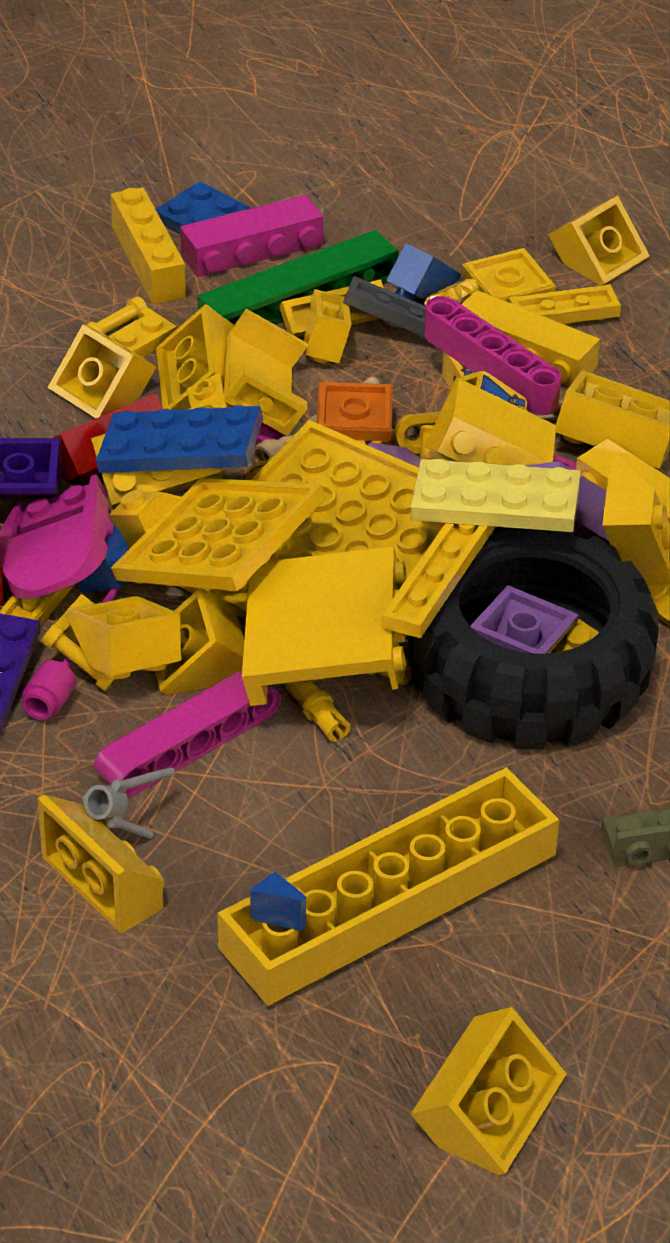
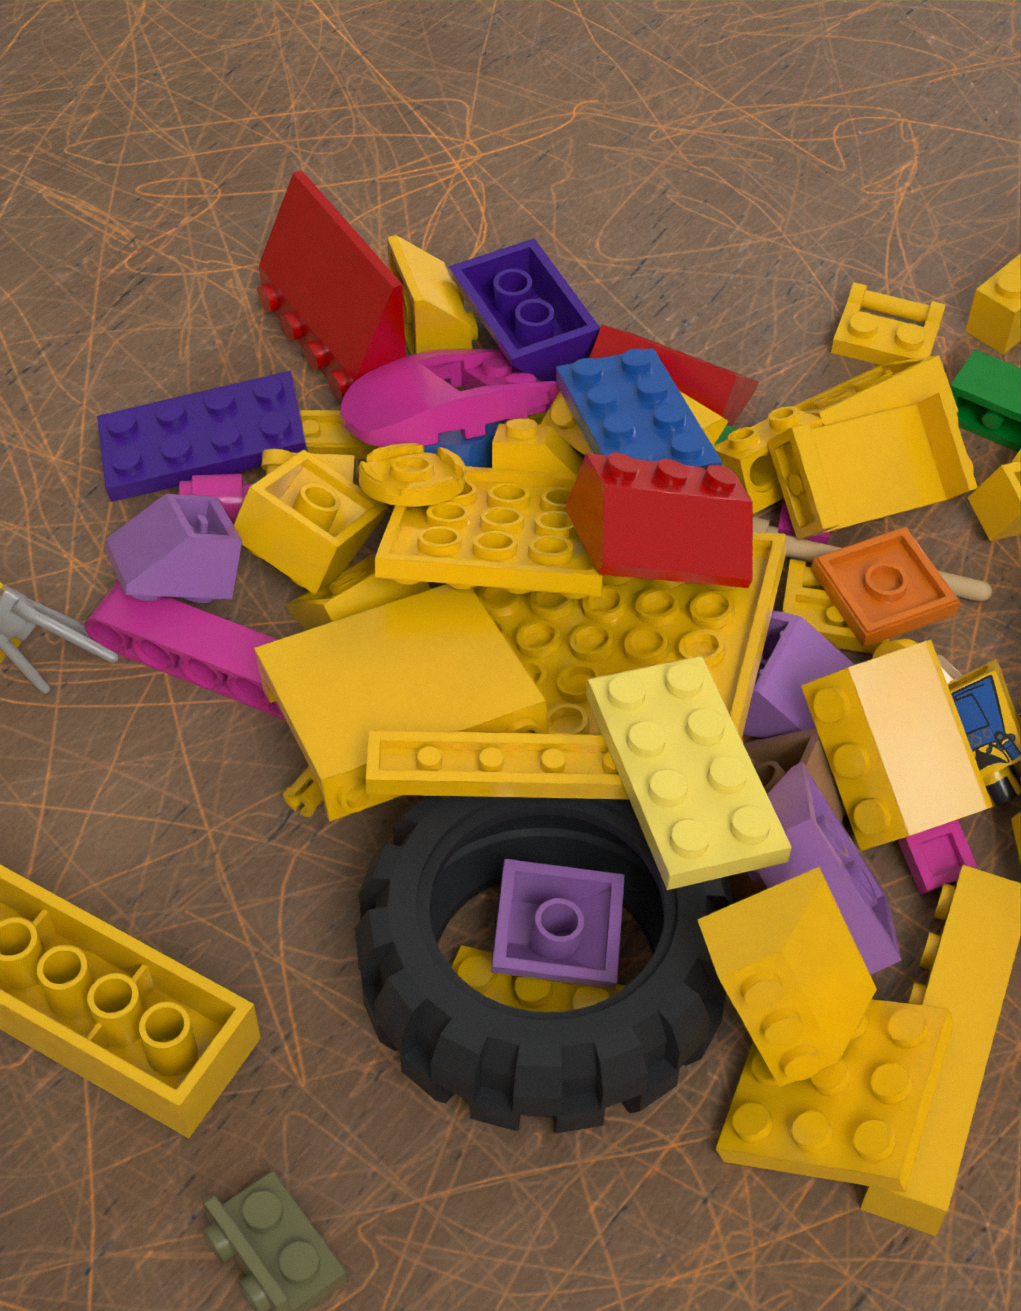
camera: 65 degrees right, 10 degrees up
(100, 373) = (784, 330): yellow slope -> none
(101, 707) = (177, 550): none -> medium lavender slope
(140, 560) = (410, 476): none -> yellow tile
(286, 449) = (663, 520): none -> red slope

